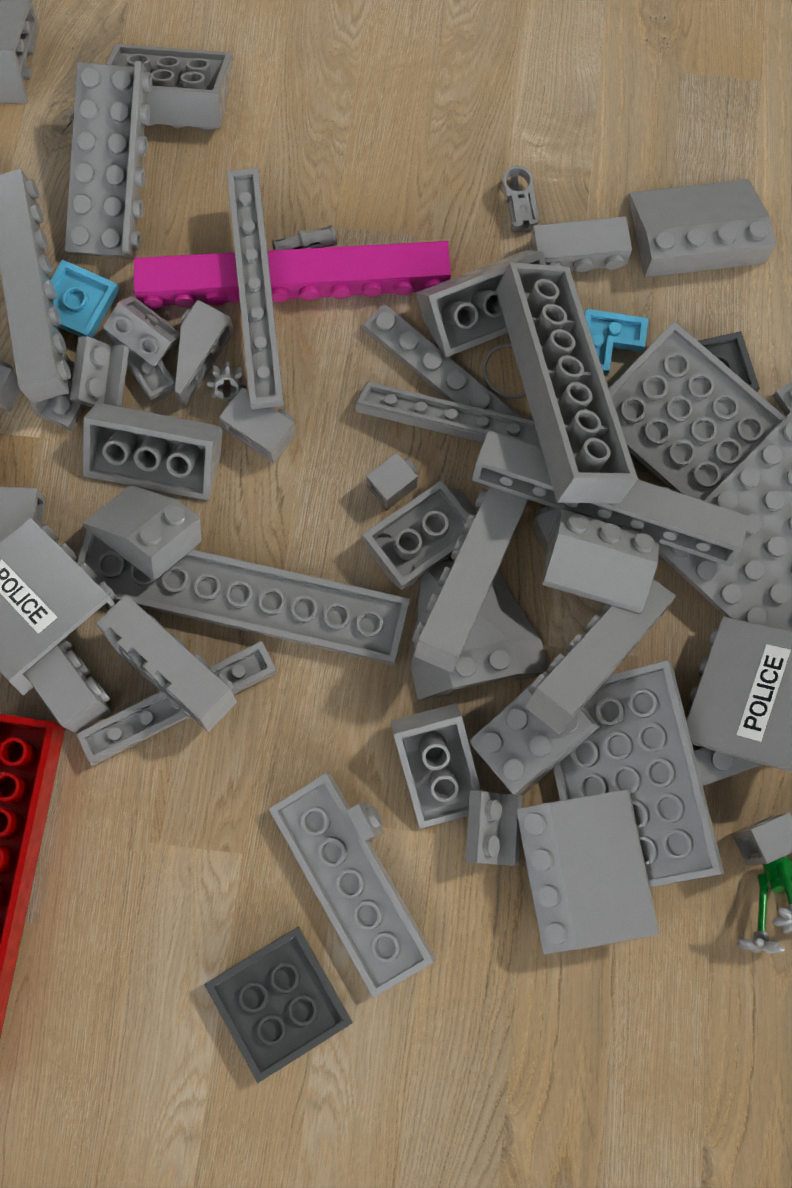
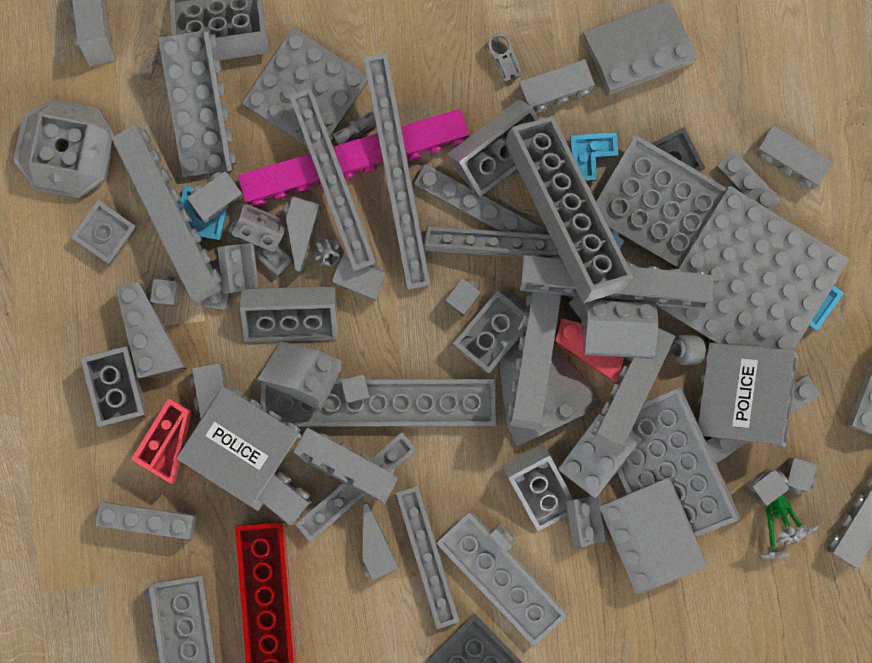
camera: 15 degrees left, 10 degrees up
(95, 277) = (215, 196): none -> light grey brick
(180, 797) = (376, 551): none -> light grey slope
(212, 565) = (355, 388): none -> light grey tile
(251, 829) = (427, 557): none -> light grey plate
(289, 178) = (300, 66): none -> light grey plate
(343, 297) = (397, 170): none -> light grey plate
(526, 571) = (570, 339): none -> coral wedge
(690, 621) = (688, 350): none -> light grey head

